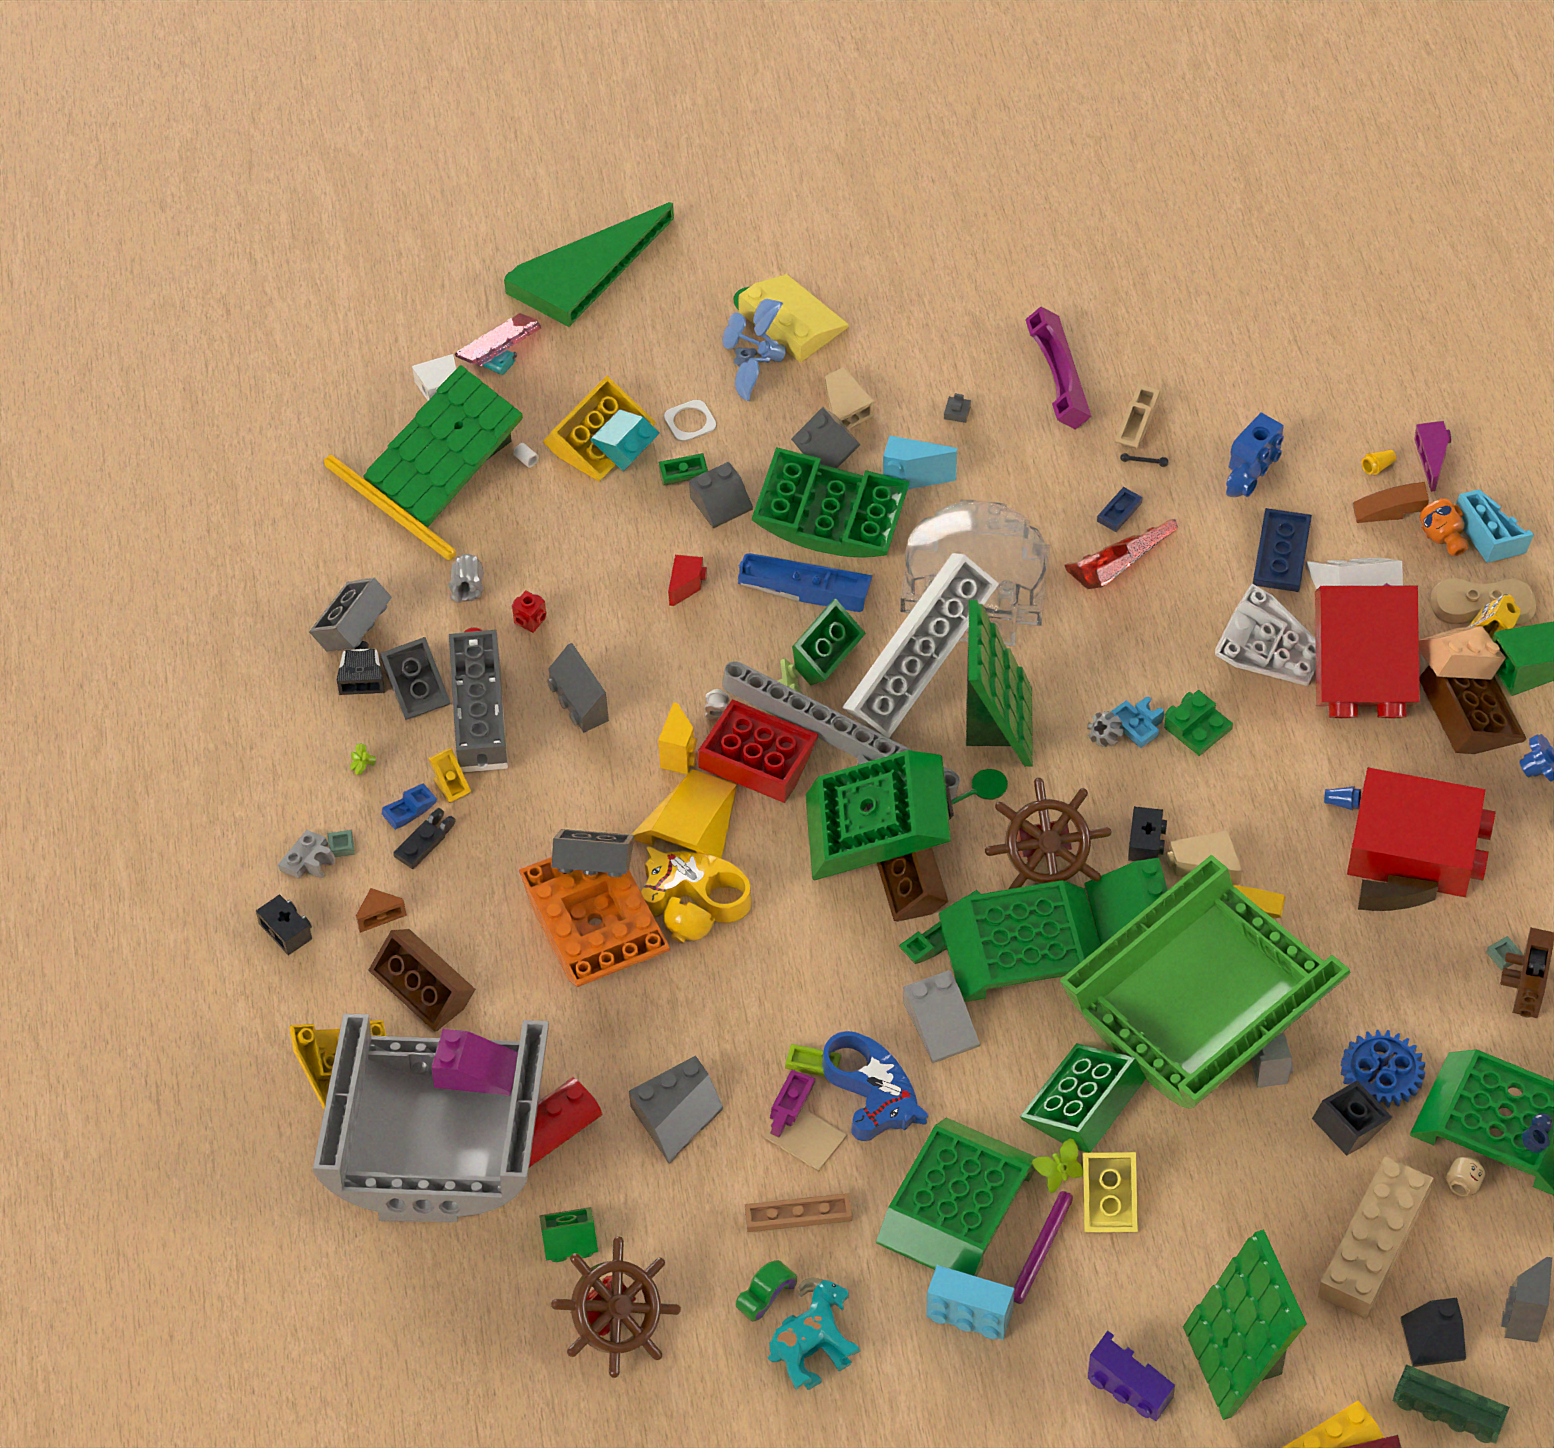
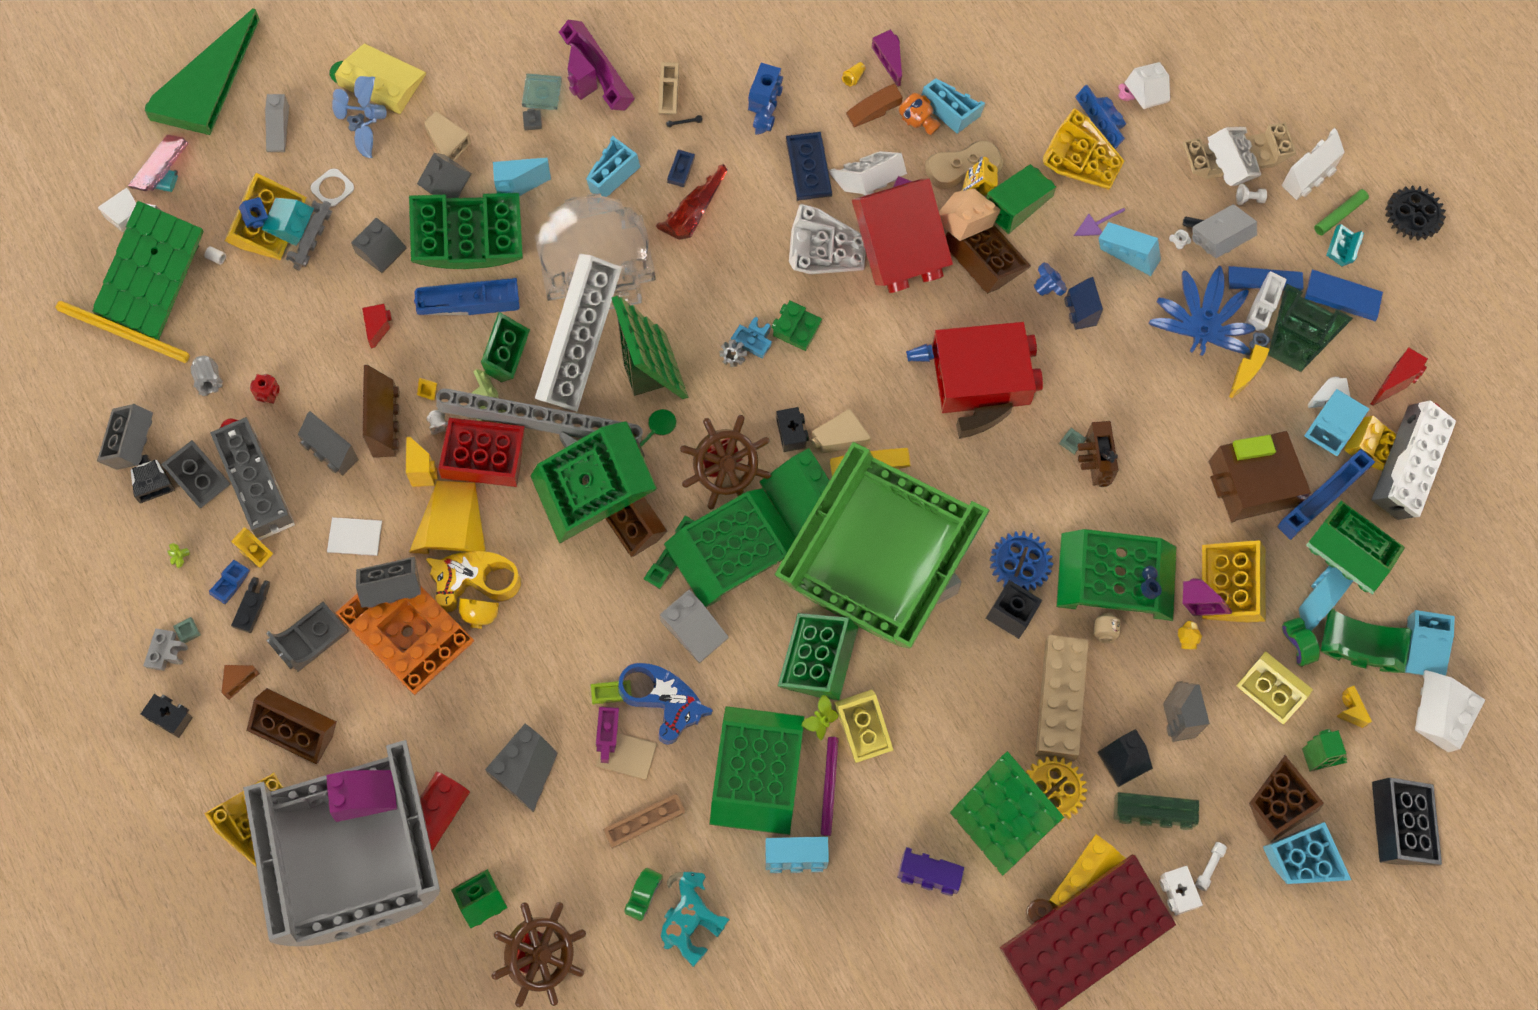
camera: 25 degrees left, 15 degrees up
(476, 890) = (307, 637): none -> dark grey bracket
(572, 801) = (354, 536): none -> white window
(590, 408) = (253, 205): none -> blue brick
(640, 467) = (308, 241): none -> flat silver piece
(651, 331) = (276, 122): none -> light grey slope
(652, 672) = (380, 413): none -> reddish brown slope
(682, 468) = (342, 232): green brick -> none
(716, 664) = (426, 389): none -> yellow slope
(981, 381) = (541, 91): none -> clear light blue tile
(1034, 372) = (581, 75): none -> magenta slope
(1035, 485) = (613, 168): none -> medium azure wedge
(1327, 1340) = (1067, 803): none -> yellow gear

